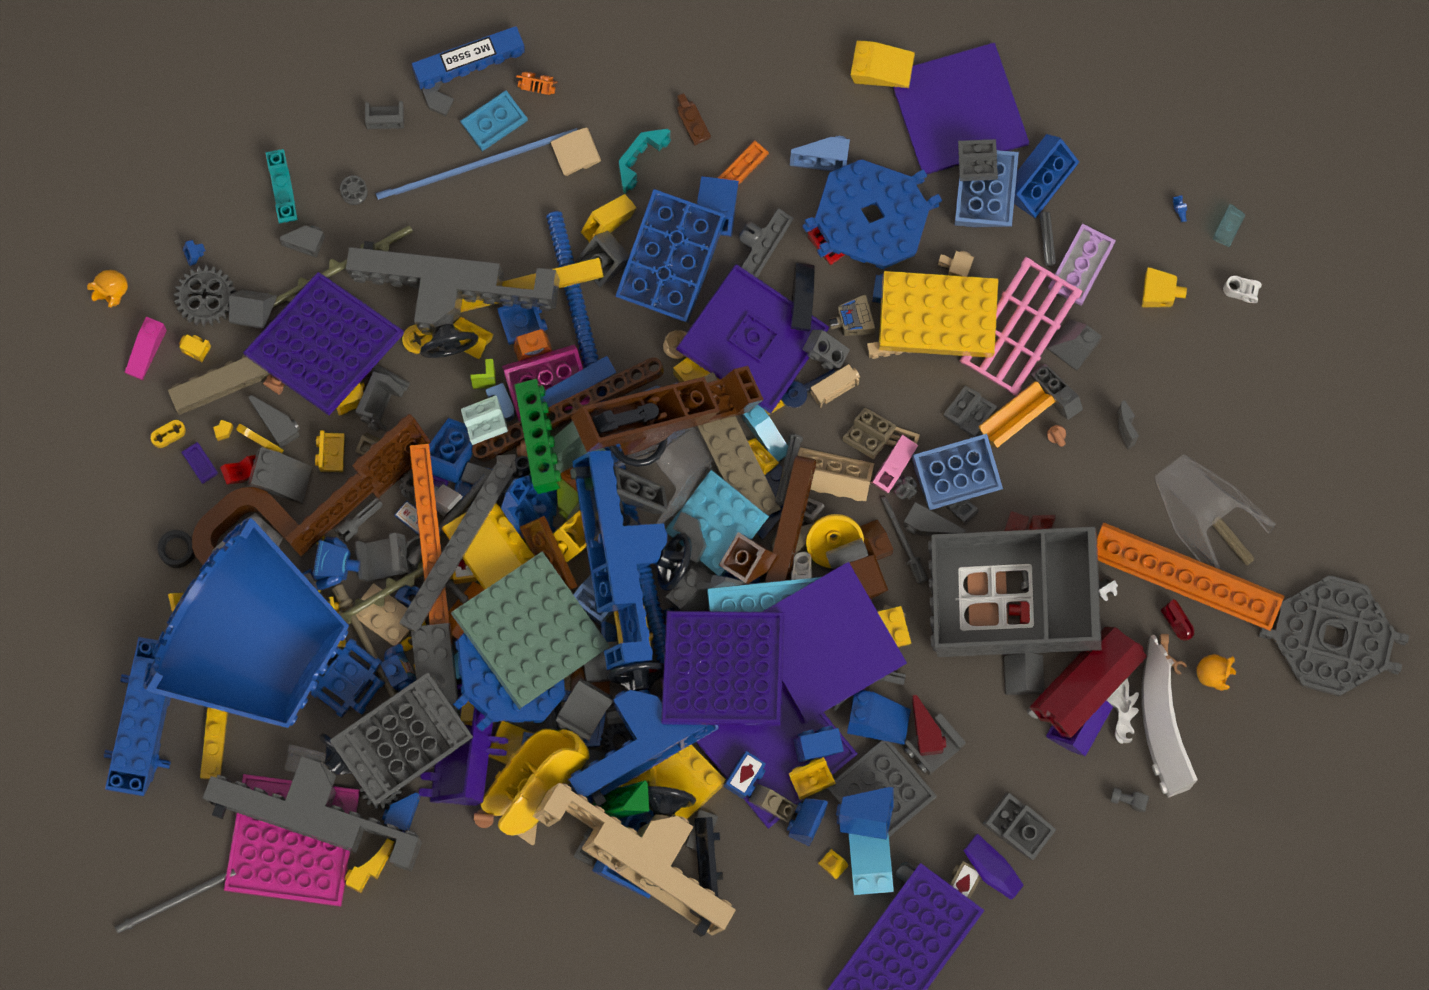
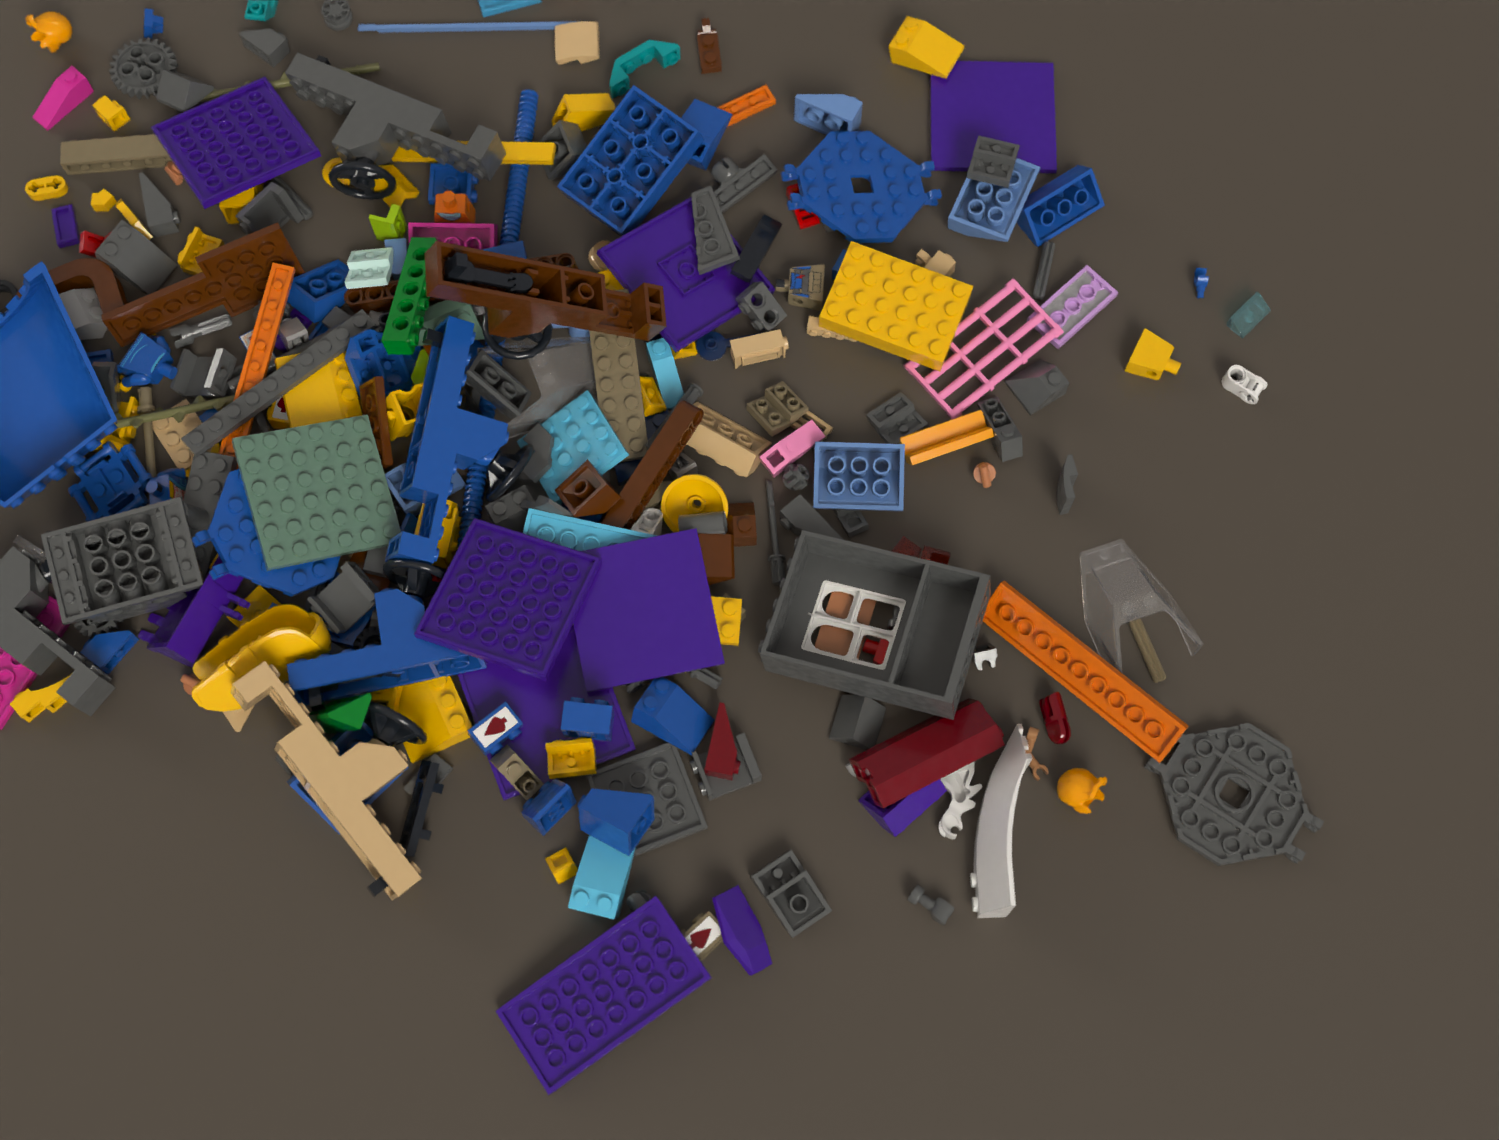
camera: 20 degrees right, 5 degrees down
(764, 299) = (712, 235): none -> dark grey wing

